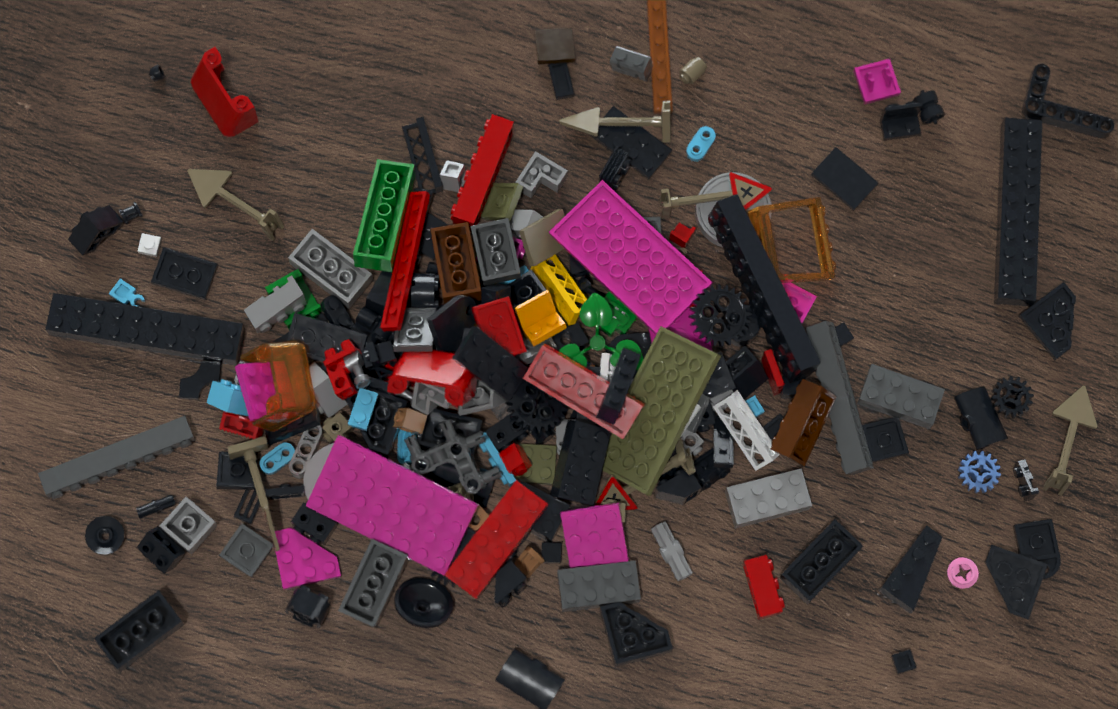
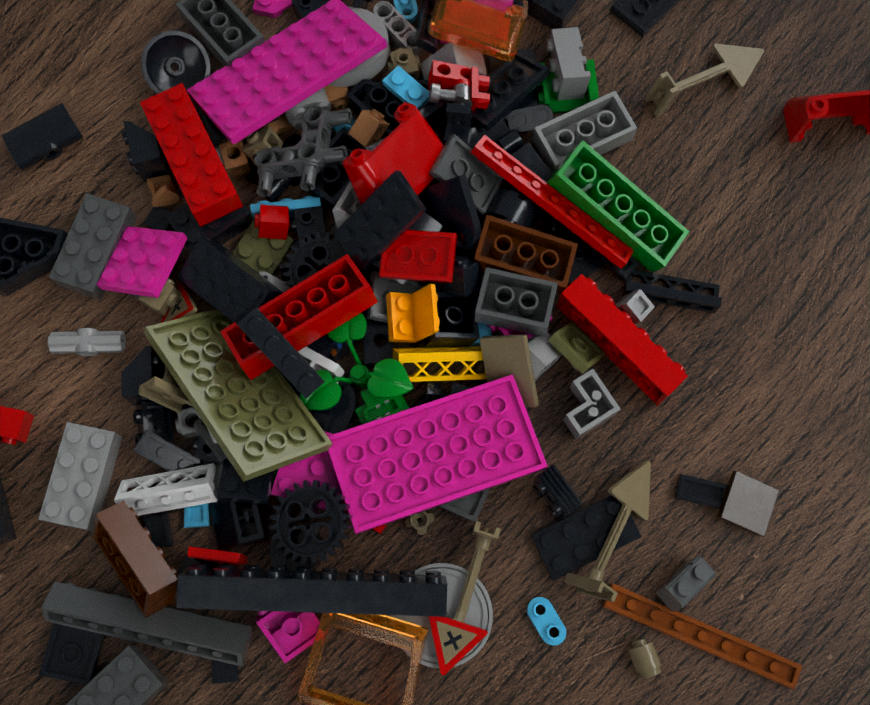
camera: 120 degrees right, 0 degrees up
(682, 235) = (442, 538): red panel -> none

